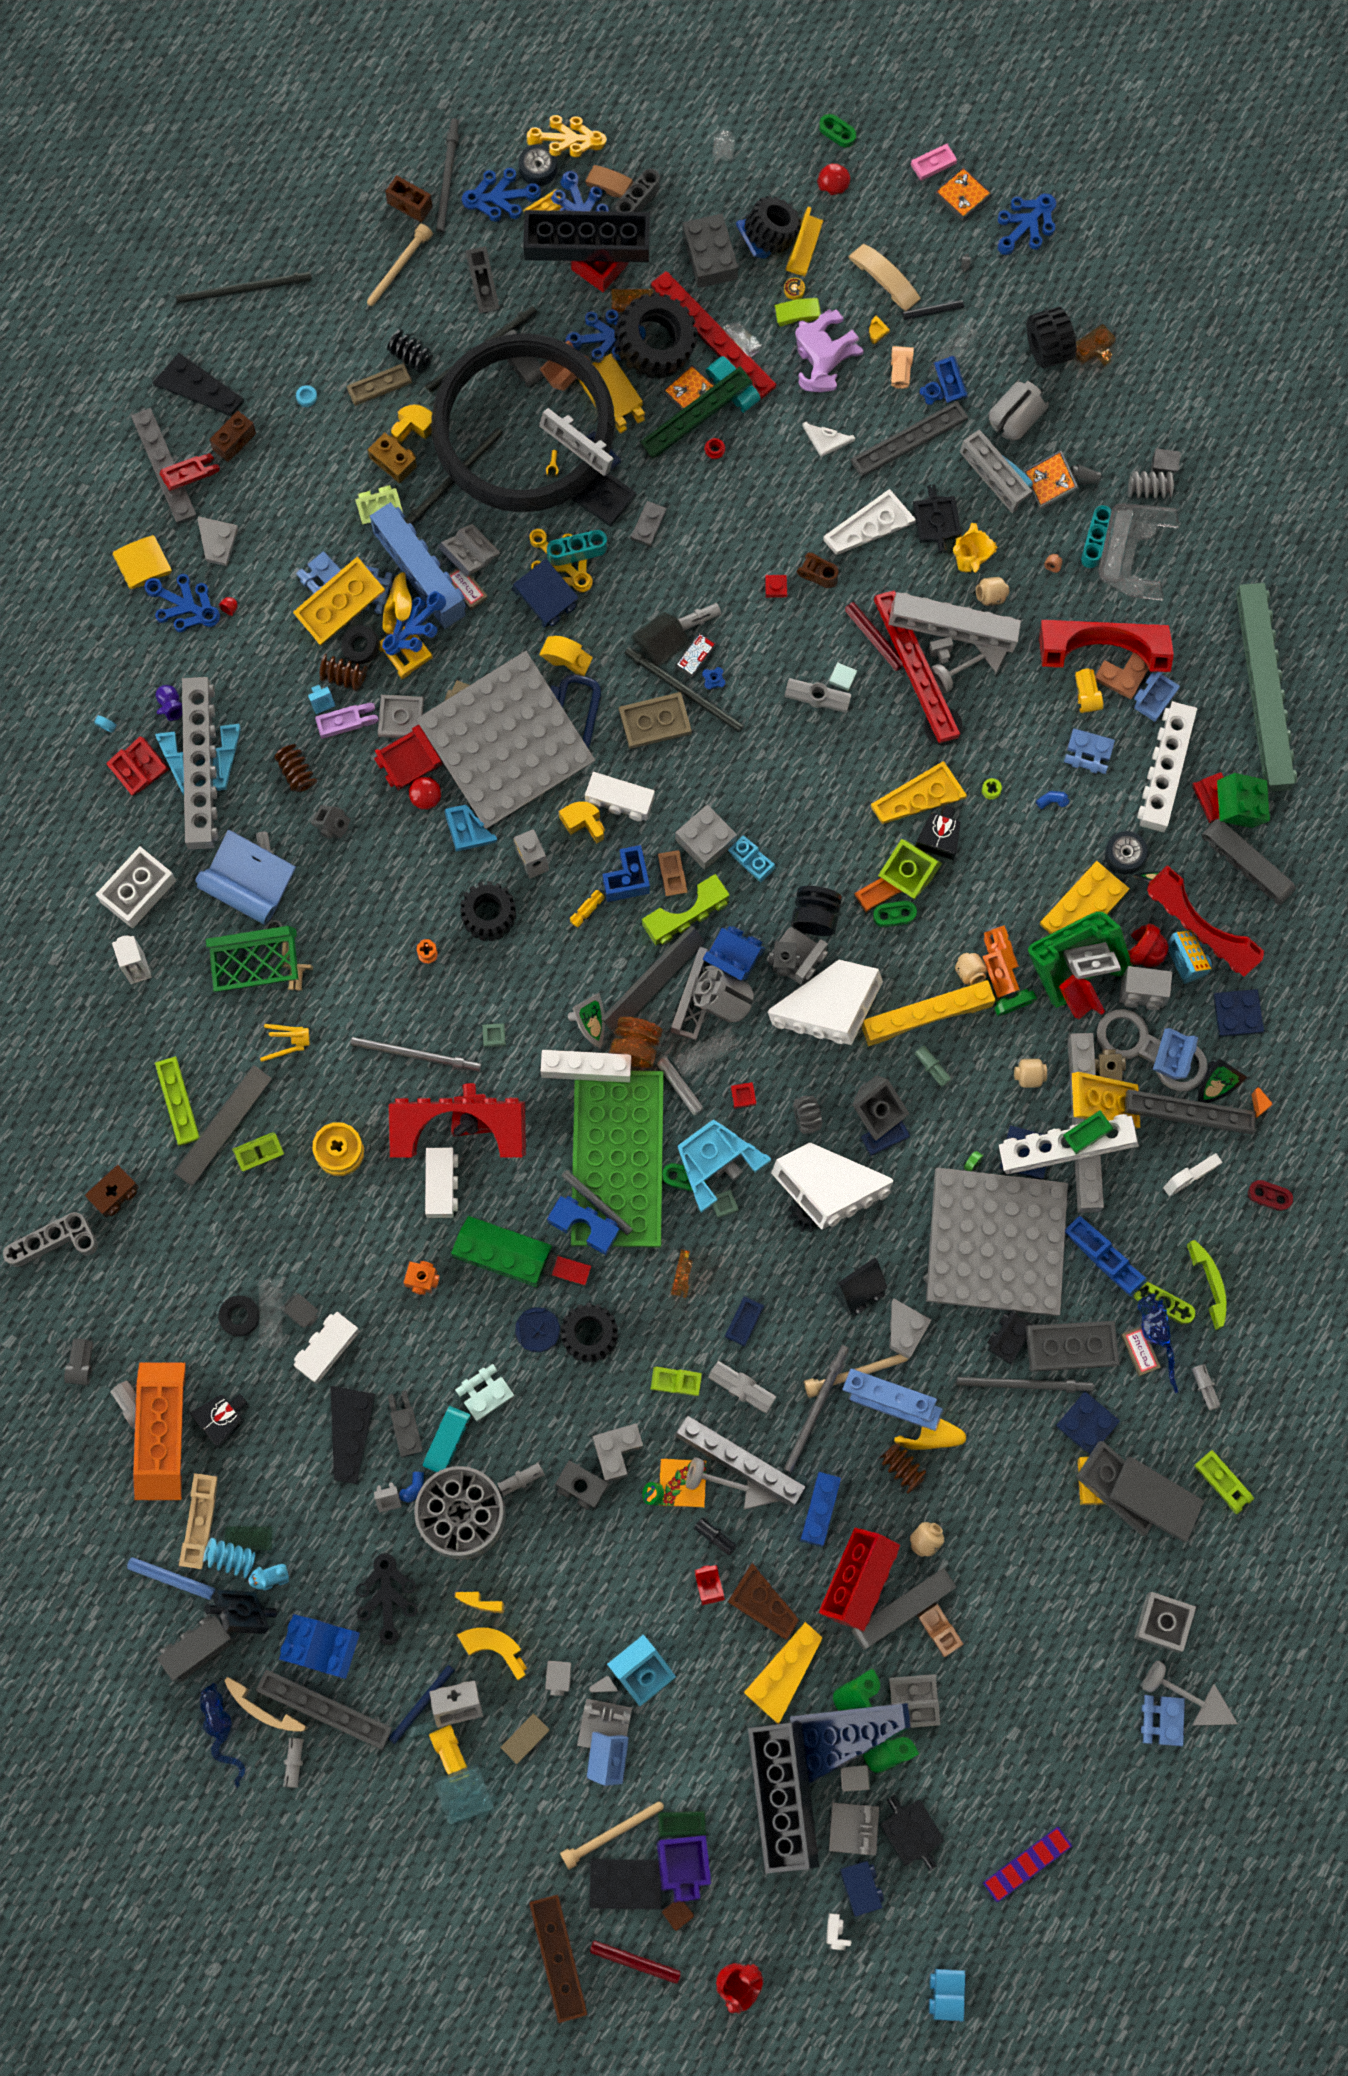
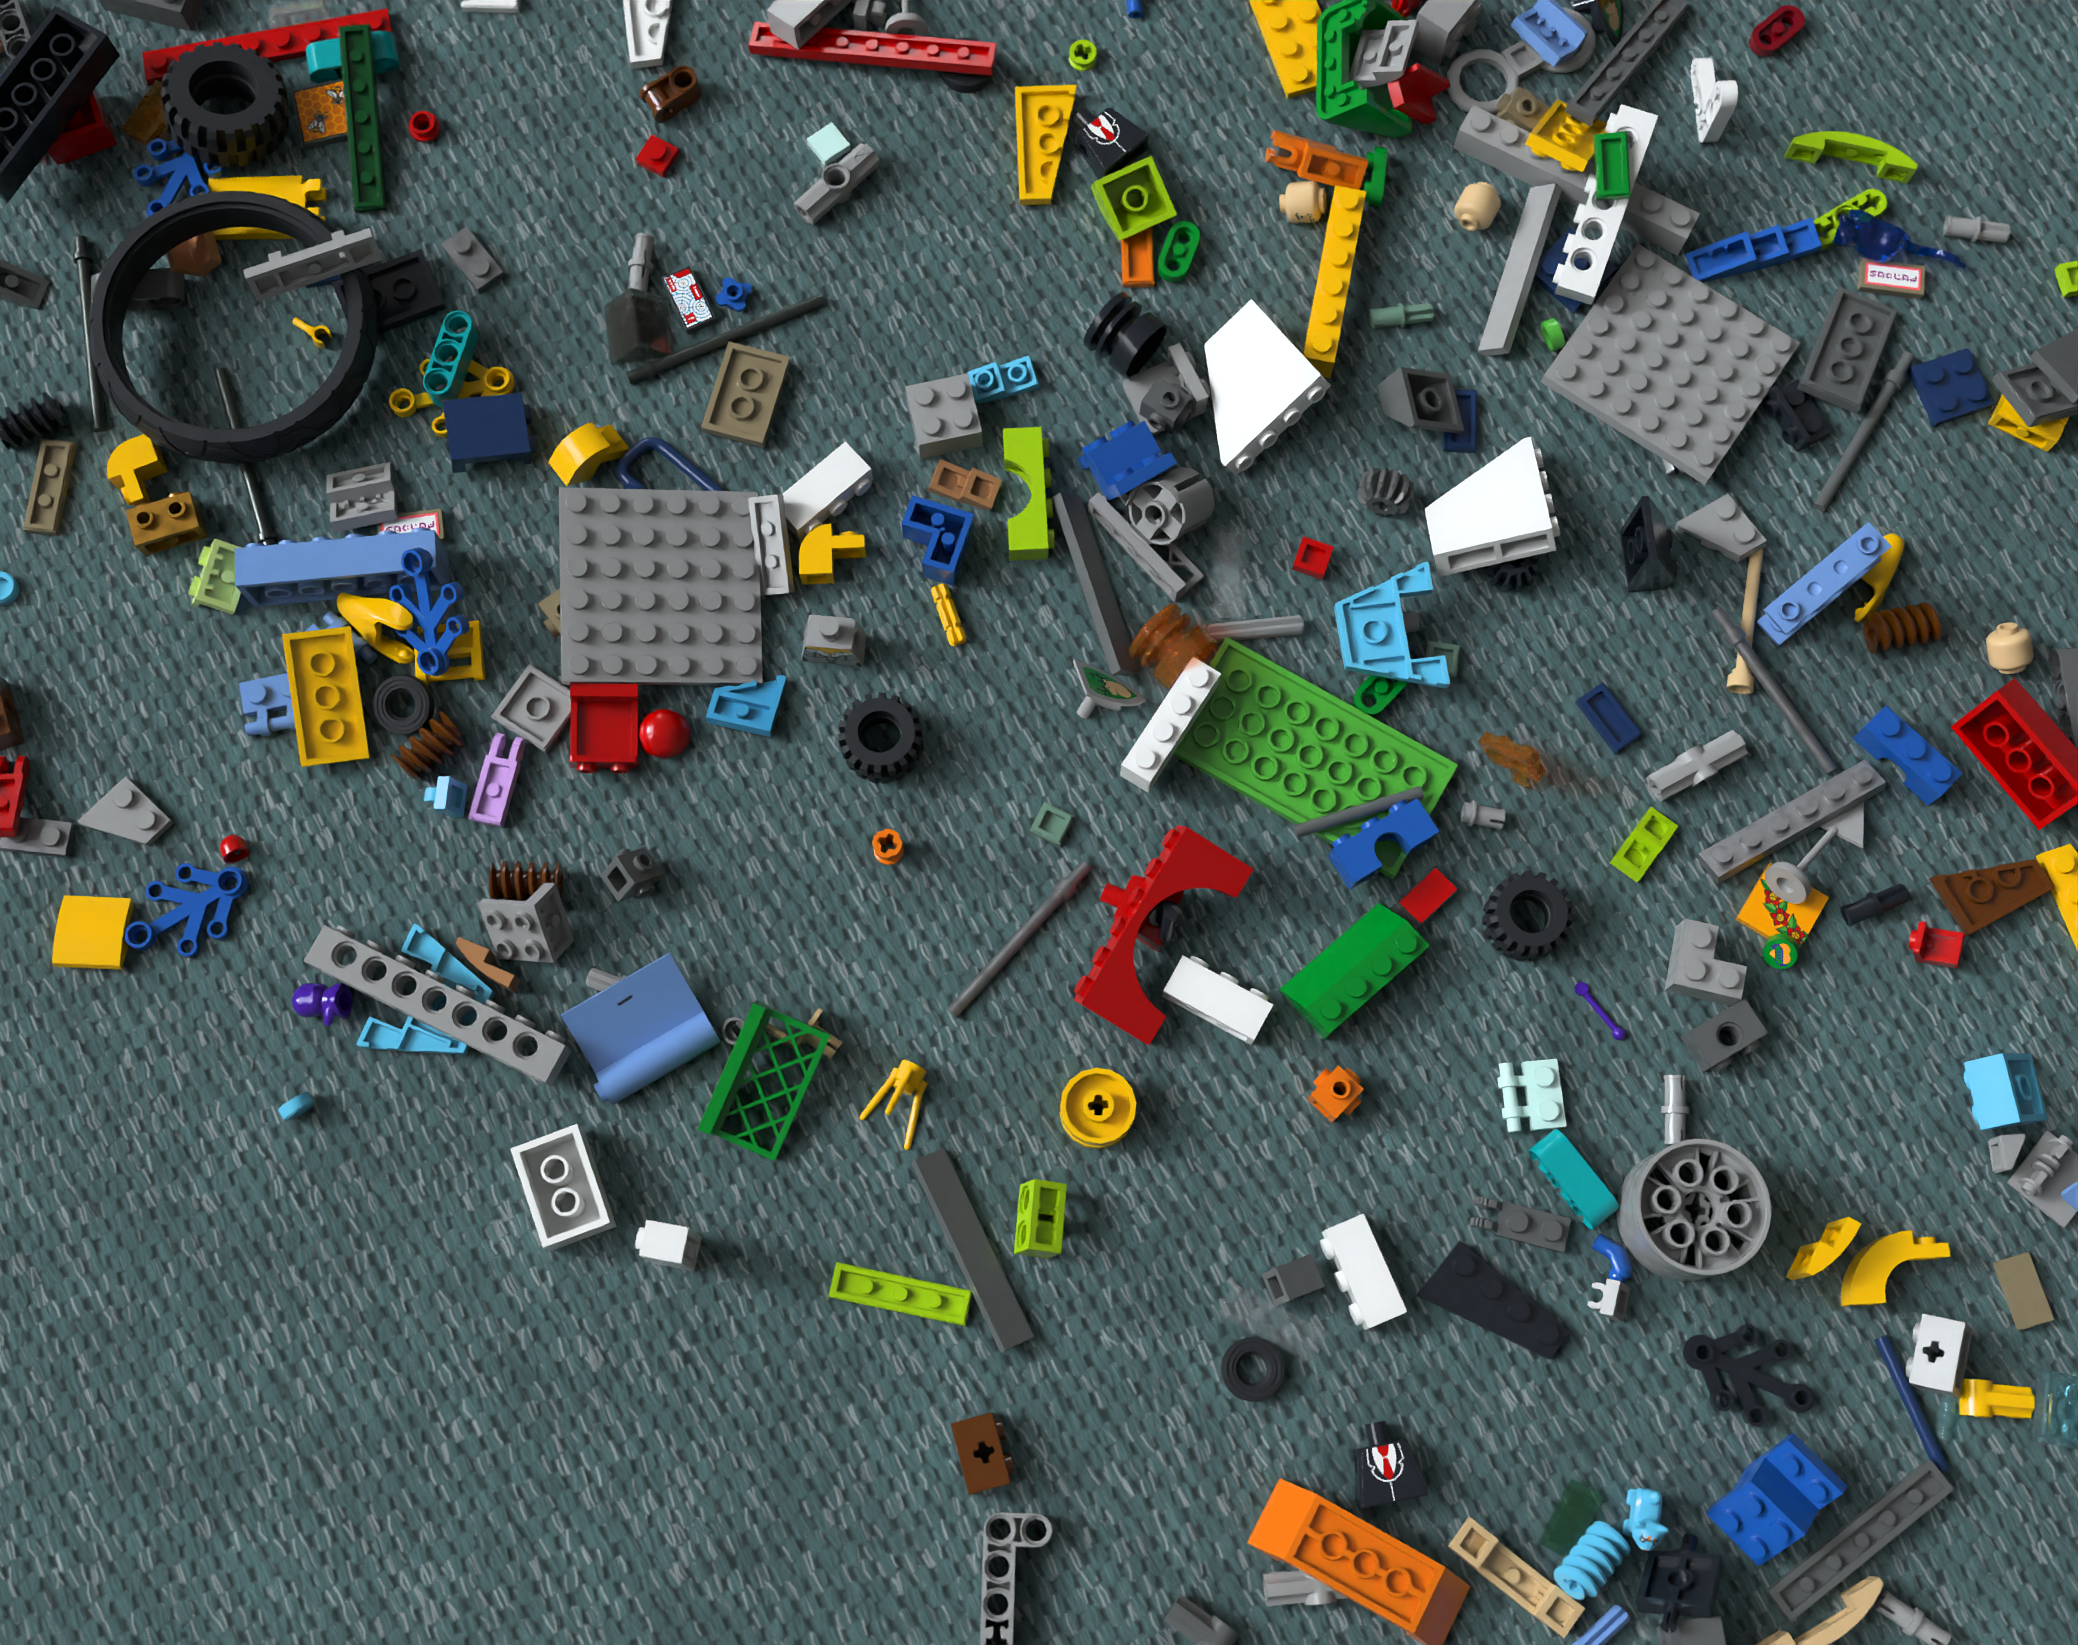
camera: 60 degrees left, 0 degrees up
(137, 766) = (385, 1095): red slope -> none
(238, 771) = (482, 959): none -> medium nougat slope
(268, 787) = (530, 928): none -> light grey bracket
(537, 1330) = (1483, 982): dark blue tile -> none
(558, 1677) = (1965, 1202): light grey brick -> none
(566, 1390) = (1582, 990): none -> dark purple hinge
(568, 785) = (771, 544): none -> light grey plate
(638, 1277) = (1482, 815): none -> light grey pin
(874, 636) = (799, 79): dark red axle -> none
(1005, 1120) = (1519, 270): none -> light grey tile

